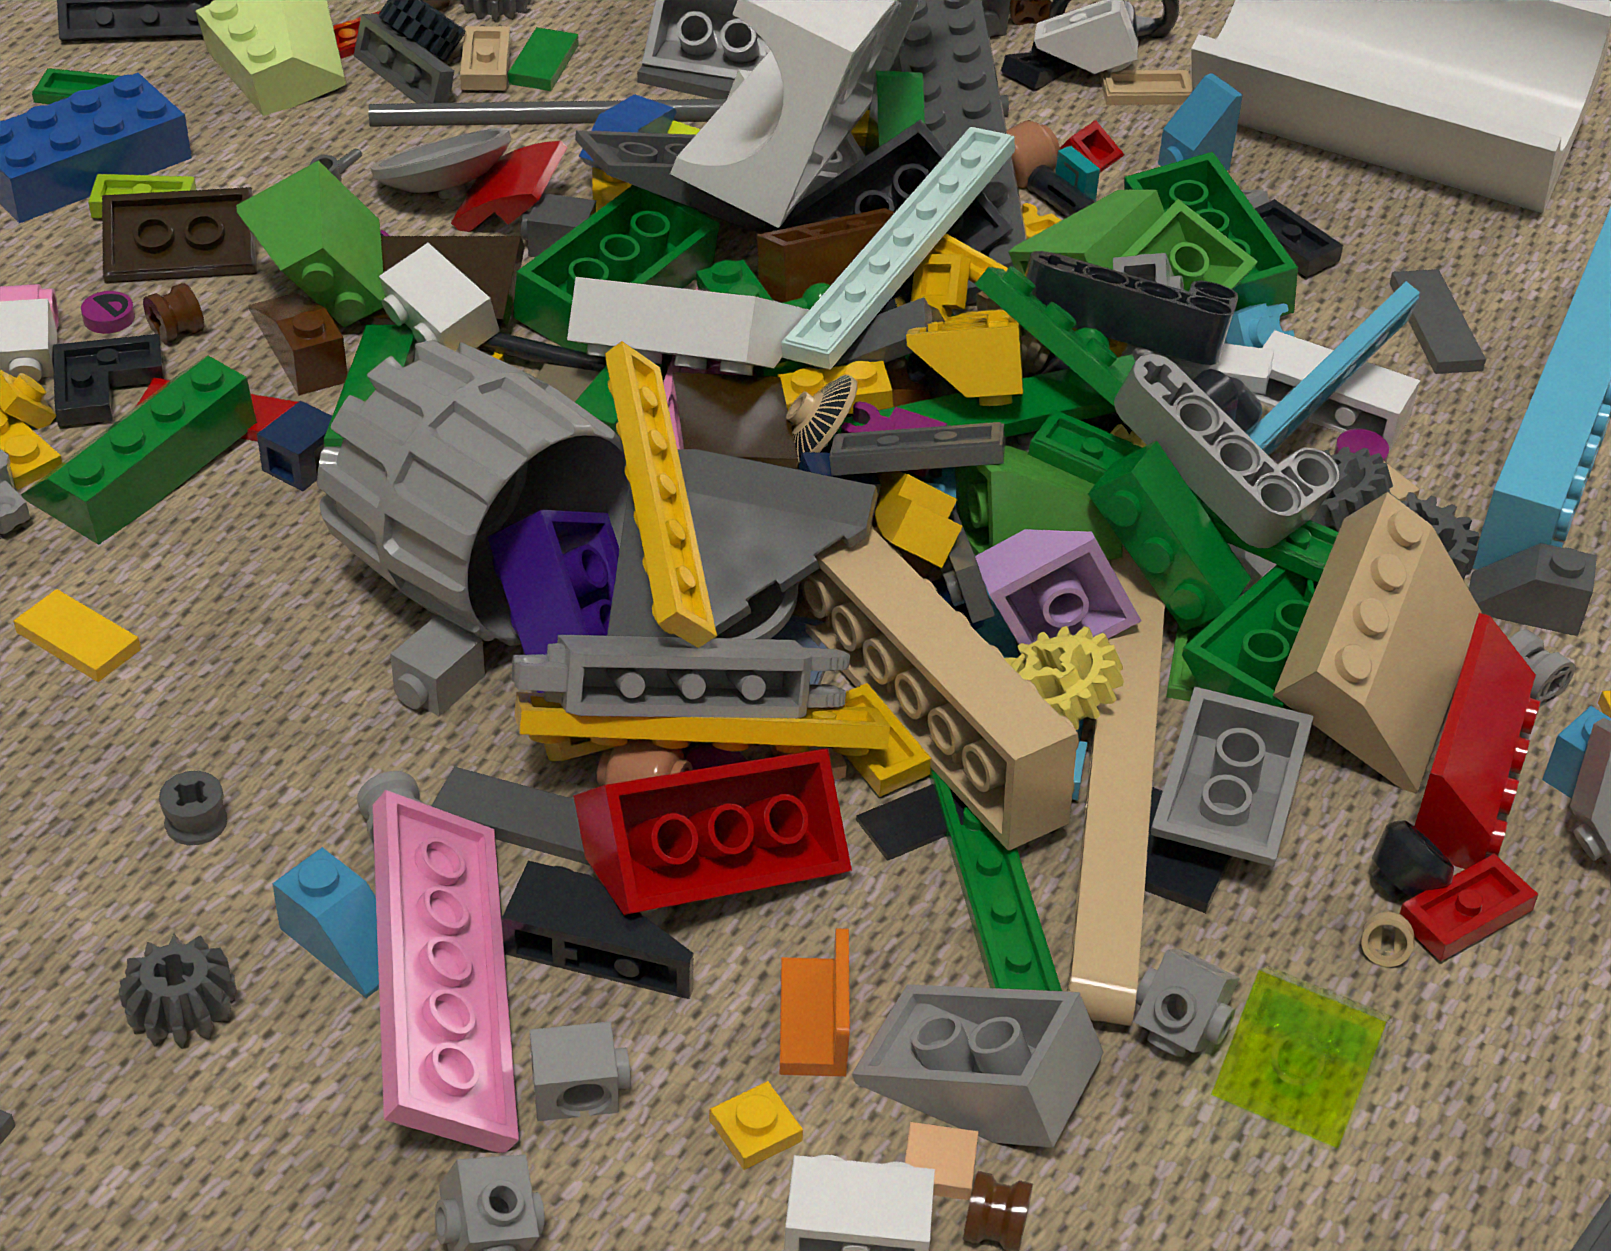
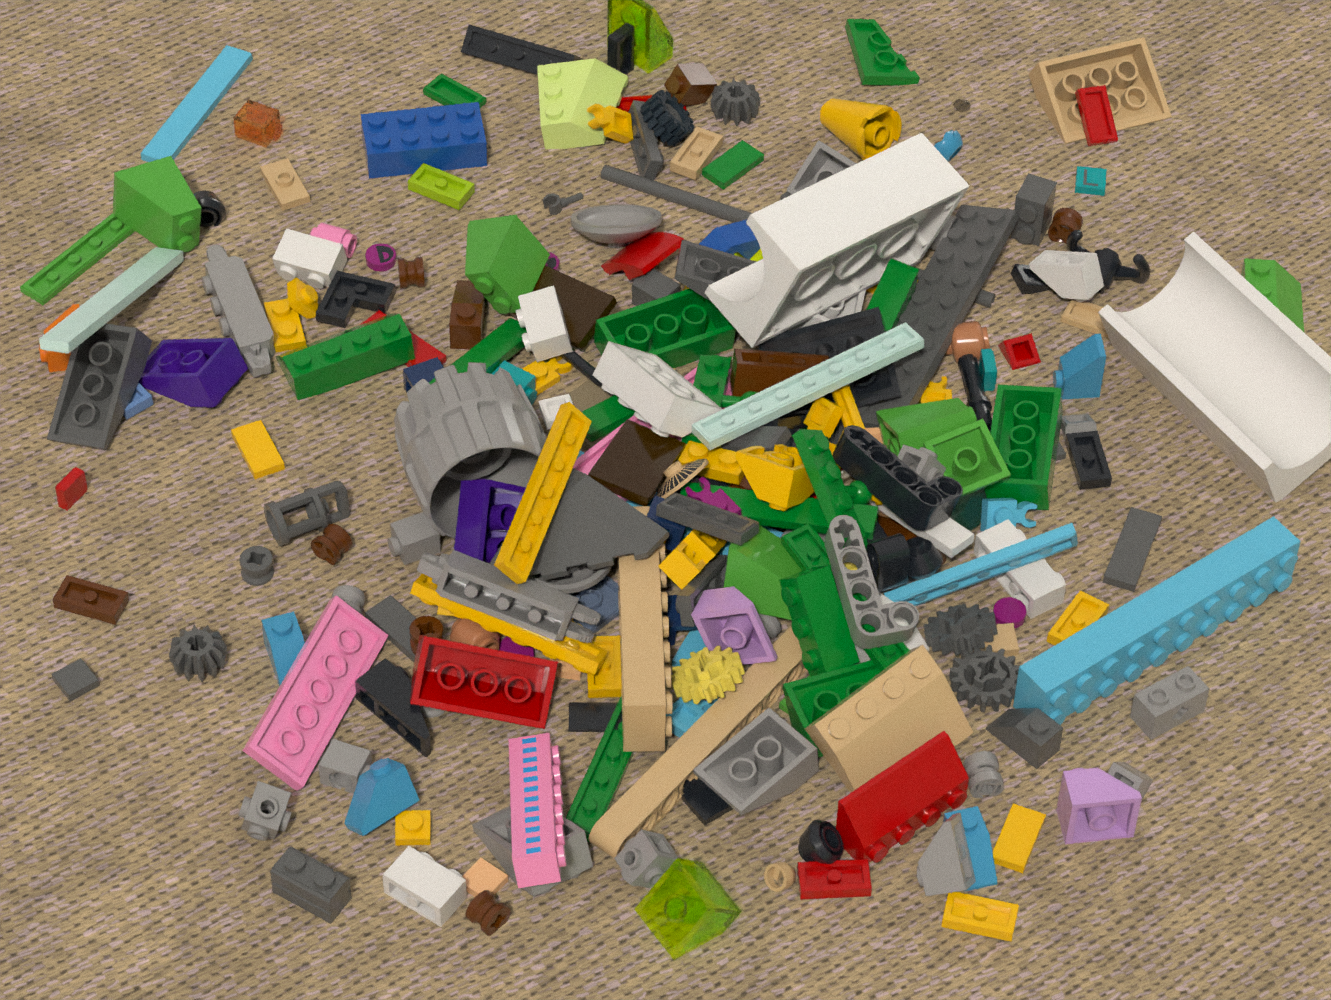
camera: 30 degrees right, 5 degrees up
(176, 235) = (439, 218): dark brown tile -> none
(240, 681) = (315, 508): none -> dark grey piece
(303, 725) = (331, 543): none -> reddish brown wheel
(347, 49) = (614, 121): none -> yellow plate
(557, 806) = (425, 626): none -> reddish brown wheel
(674, 1095) = (380, 796): none -> dark azure slope
(815, 1013) = (476, 788): orange panel -> none
(985, 1000) = (536, 810): none -> bright pink brick
(1461, 429) = (1078, 615): none -> yellow plate

